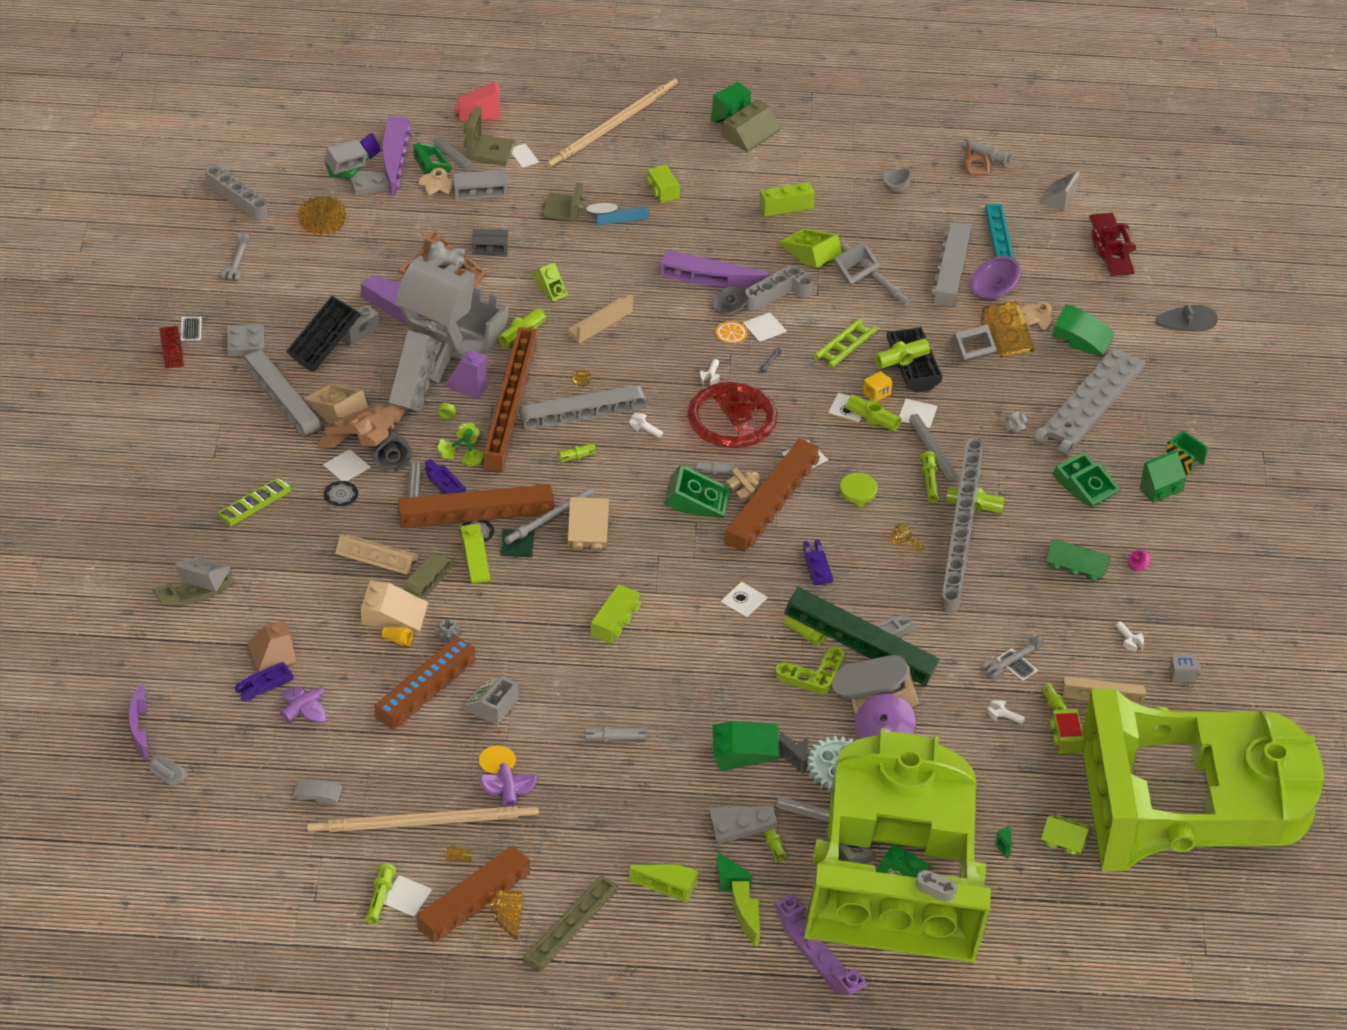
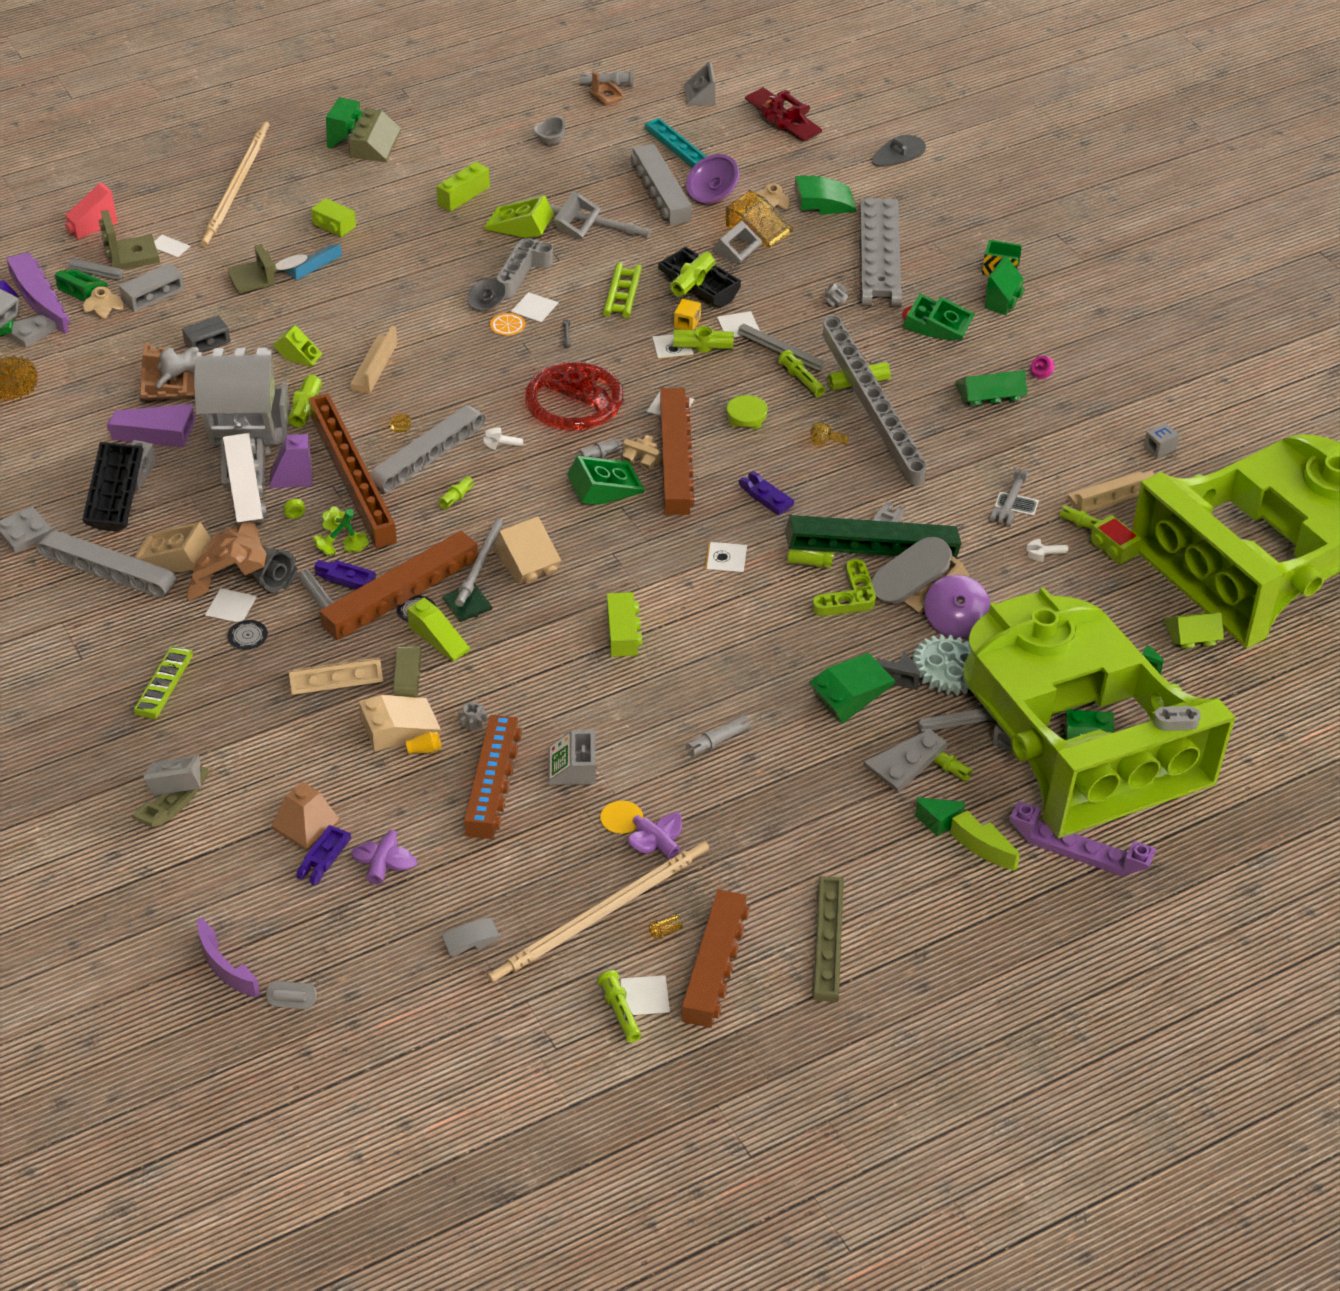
camera: 30 degrees left, 0 degrees up
(507, 910) = (764, 957): clear yellow slope -> none
(667, 879) = (886, 848): lime slope -> none
(708, 271) = (444, 277): medium lavender slope -> none
(714, 378) = (521, 368): white bar -> none
(1131, 639) = (1097, 438): white bar -> none

